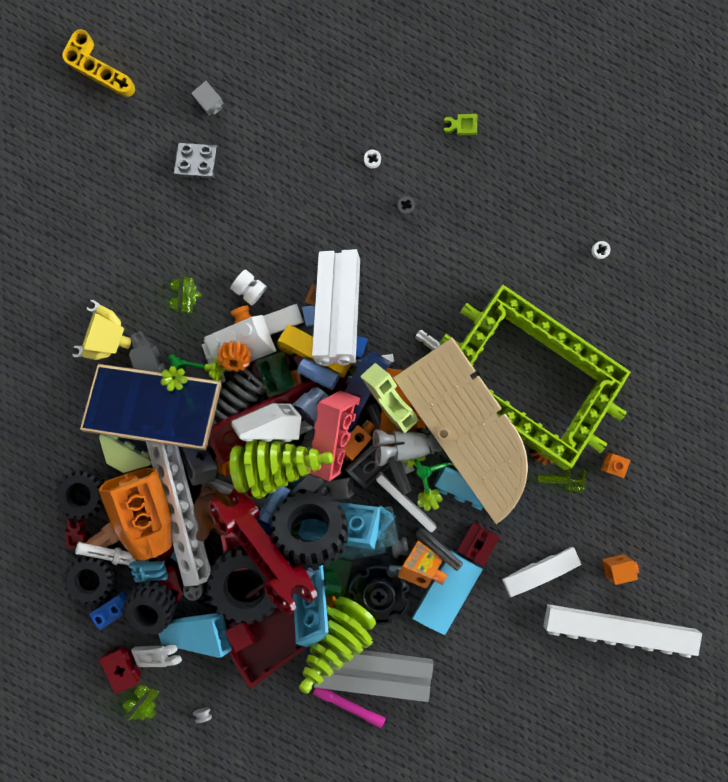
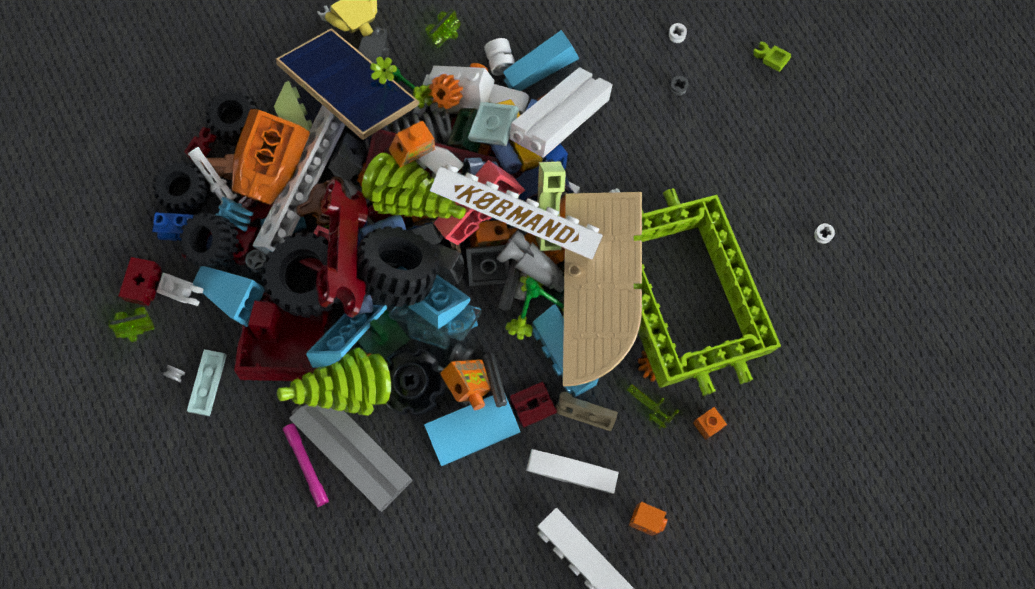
camera: 35 degrees right, 15 degrees down
(231, 703) = (206, 382): none -> light aqua plate
(256, 438) = (415, 143): none -> orange torso
(285, 269) = (541, 62): none -> medium azure slope
(294, 359) = (493, 123): none -> light aqua plate
(372, 429) = (516, 212): none -> white brick
(405, 502) = (496, 319): white tile -> none
(520, 522) = (585, 412): none -> dark tan plate

